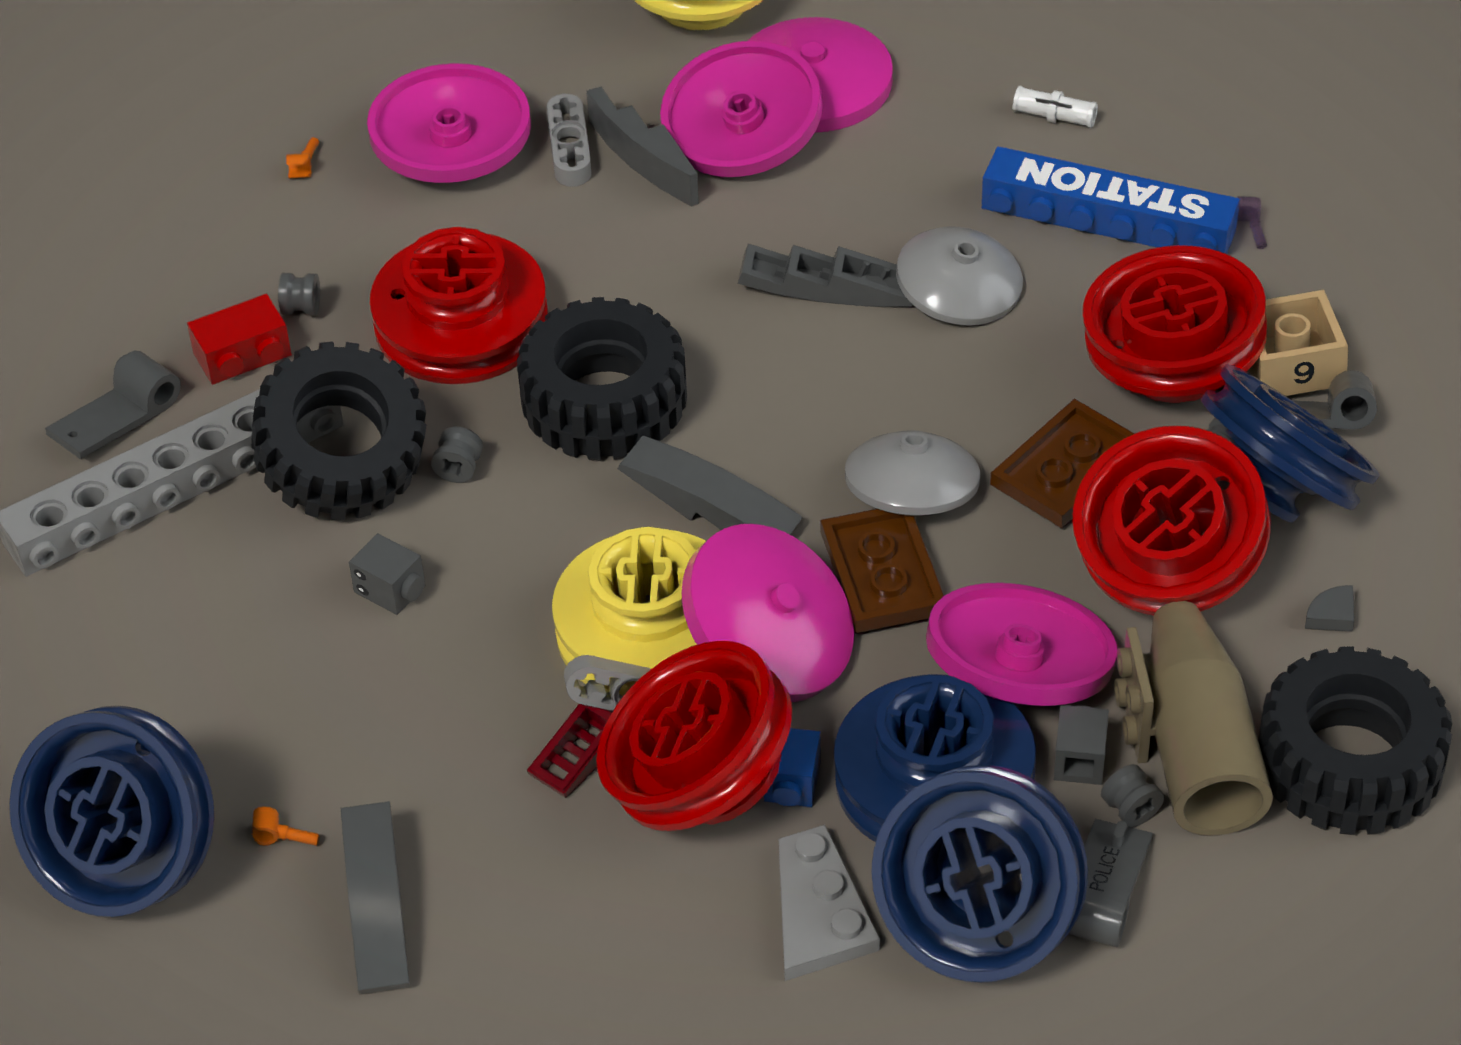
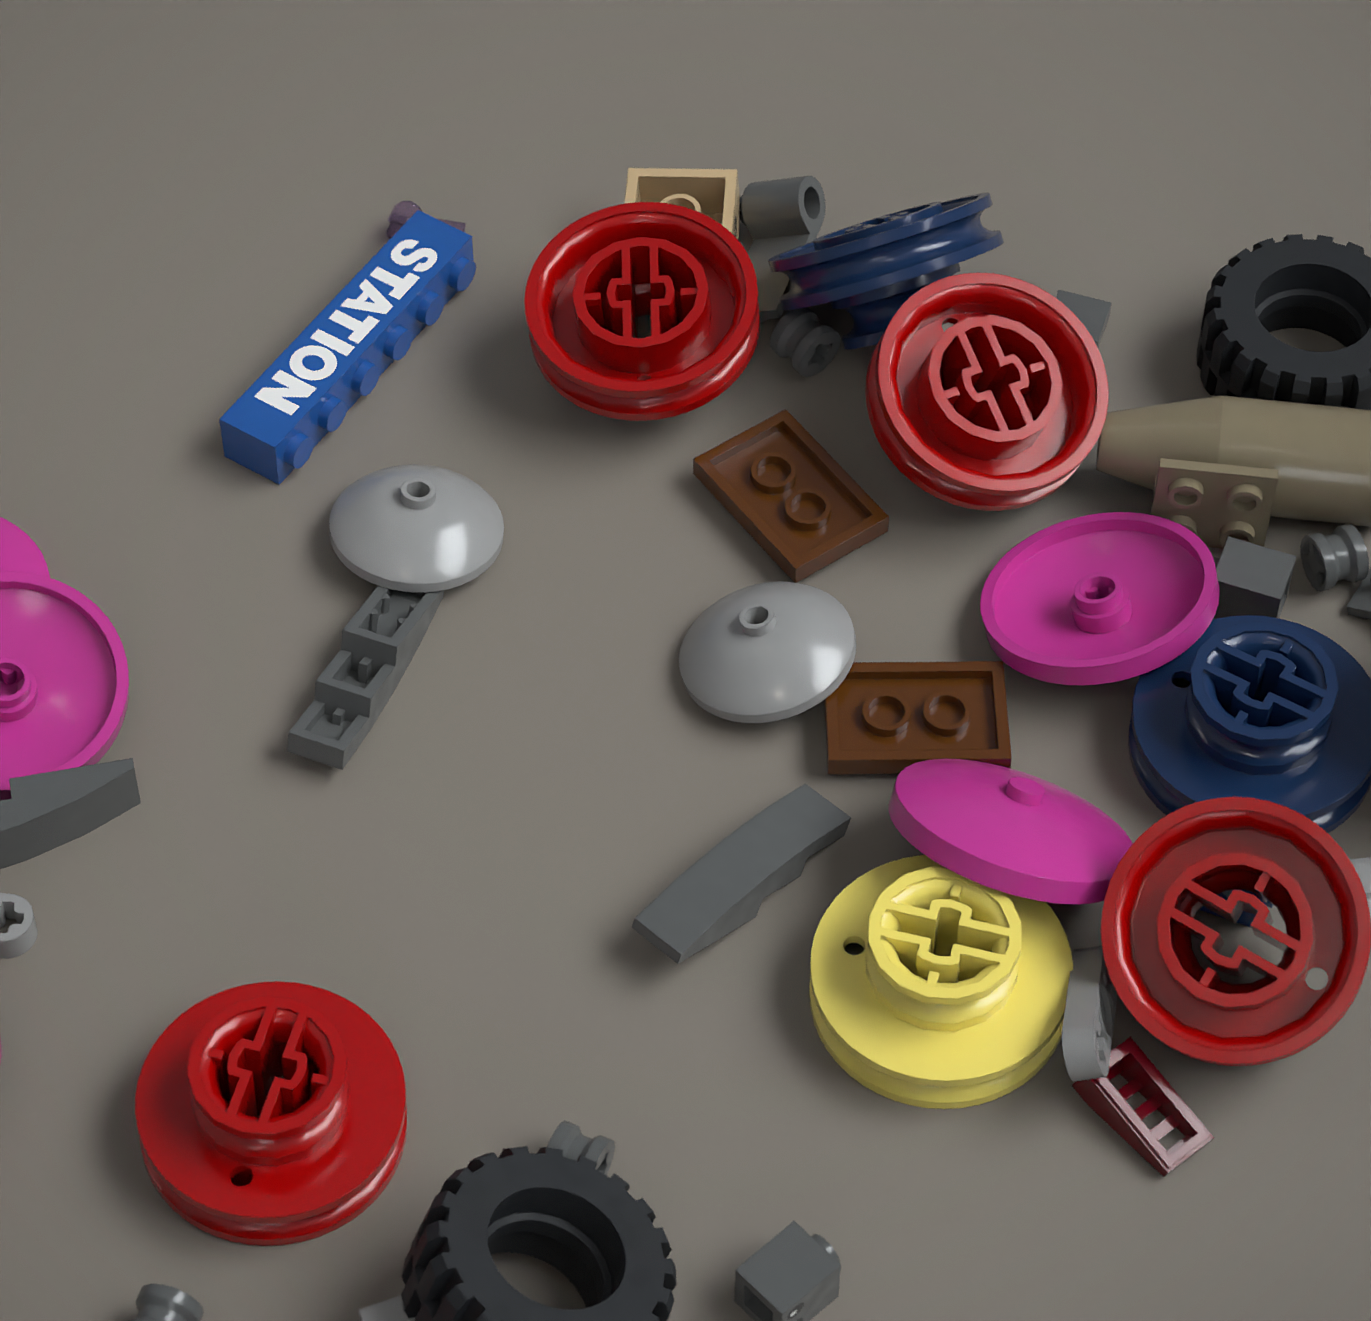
camera: 80 degrees left, 5 degrees up
(593, 340) = (510, 1016): black tyre -> none
(1055, 106) = (108, 379): white pin -> none

